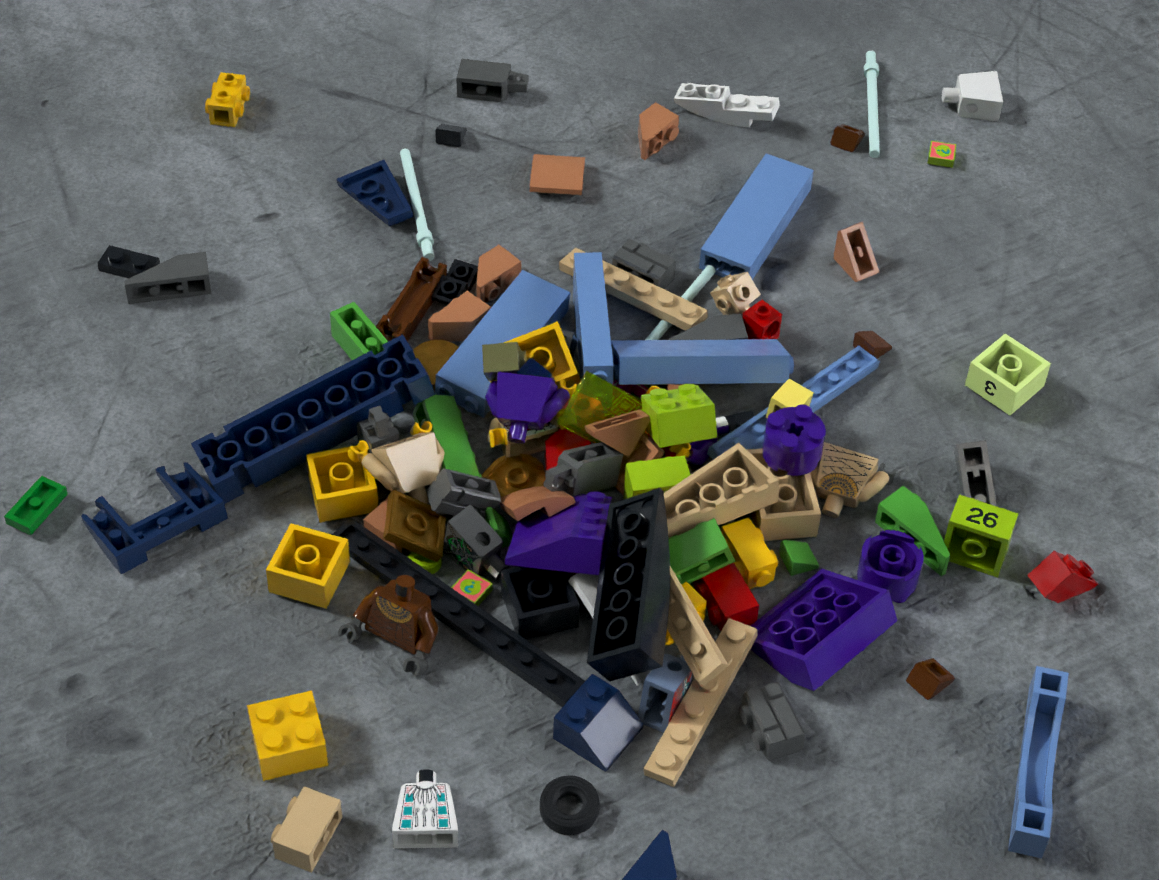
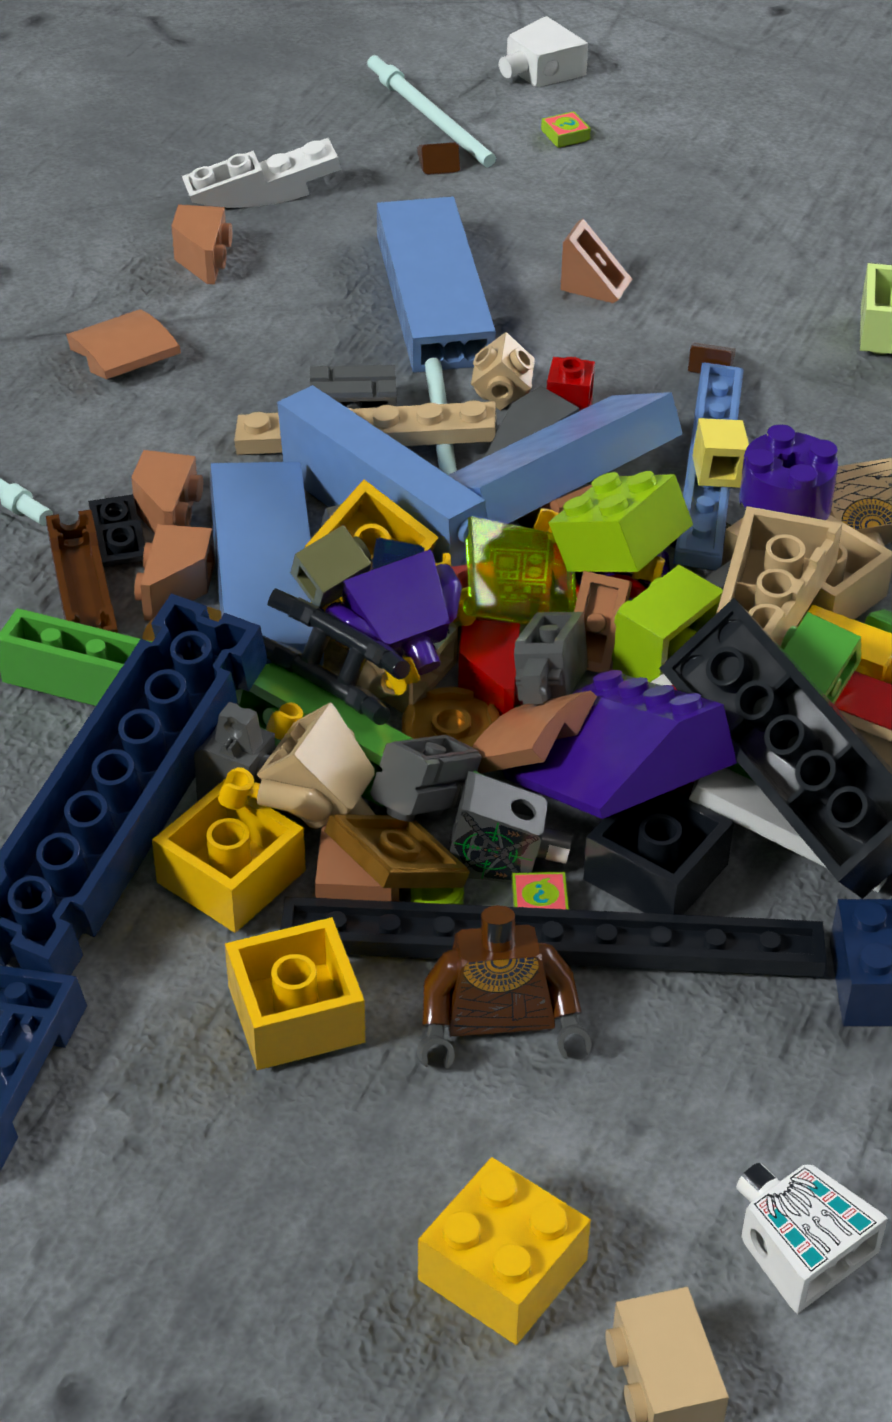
camera: 35 degrees left, 5 degrees down
(462, 403) = (361, 649): none -> black piece
(620, 431) = (558, 581): nougat slope -> none

